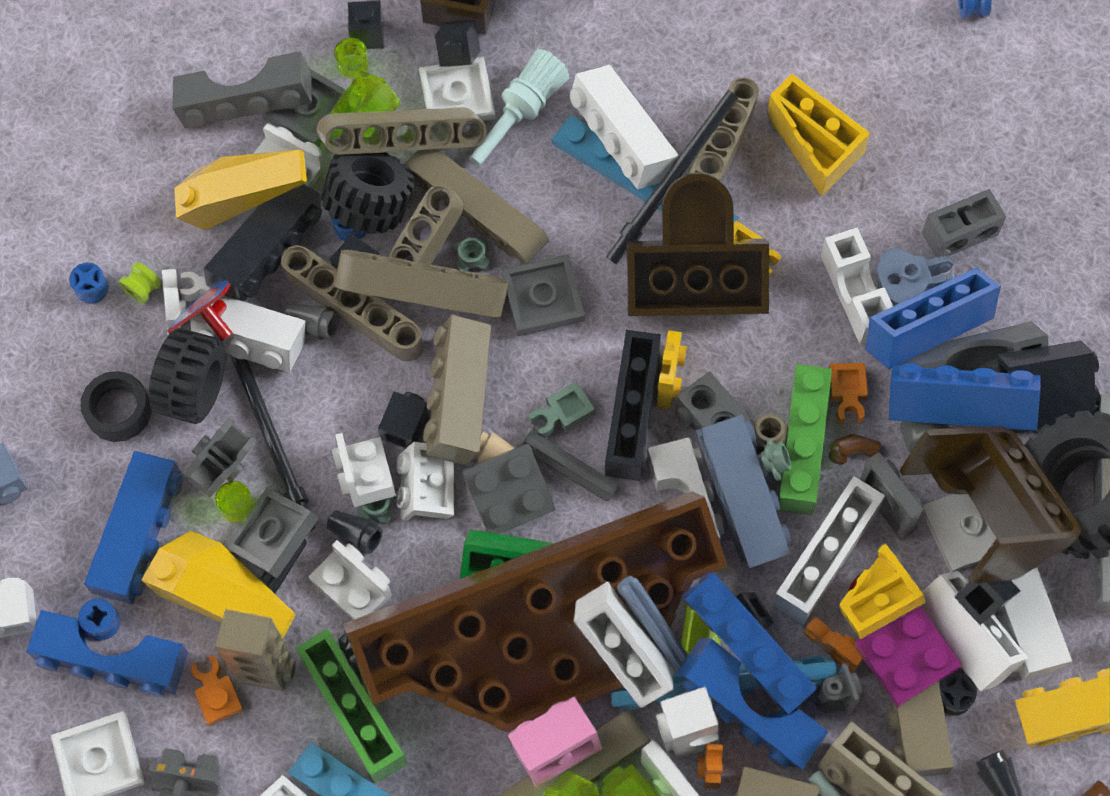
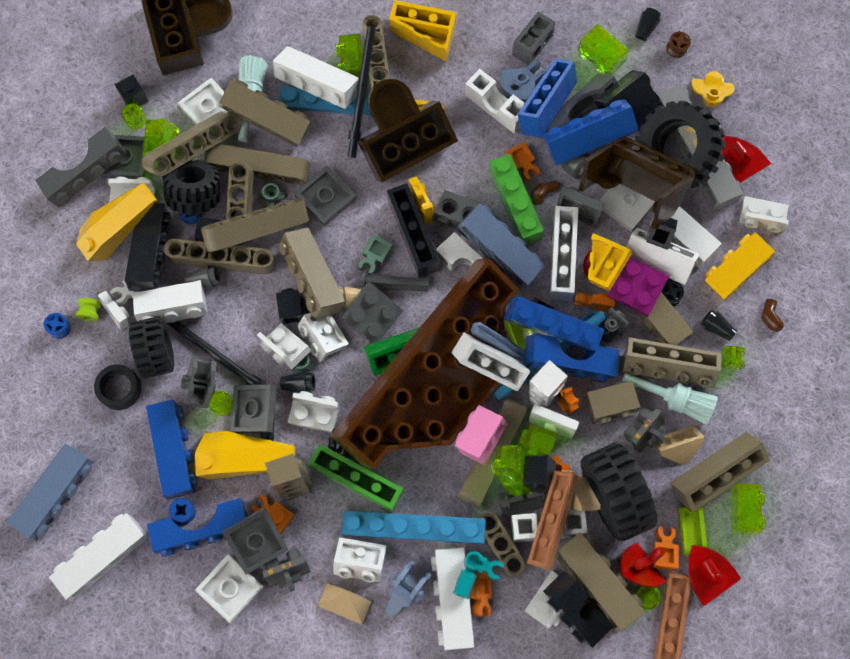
camera: 30 degrees left, 5 degrees up
(165, 712) = (255, 540): none -> dark grey plate
(209, 313) = (142, 299): red shield -> none
(457, 43) = (192, 76): black brick -> none
(522, 139) = (264, 113): none -> dark tan brick
(688, 115) = (350, 52): none -> clear neon green brick
(769, 427) = (497, 204): dark tan cone -> none
(776, 458) = (509, 218): sand green plate -> none
(1057, 292) = (603, 50): none -> clear neon green brick

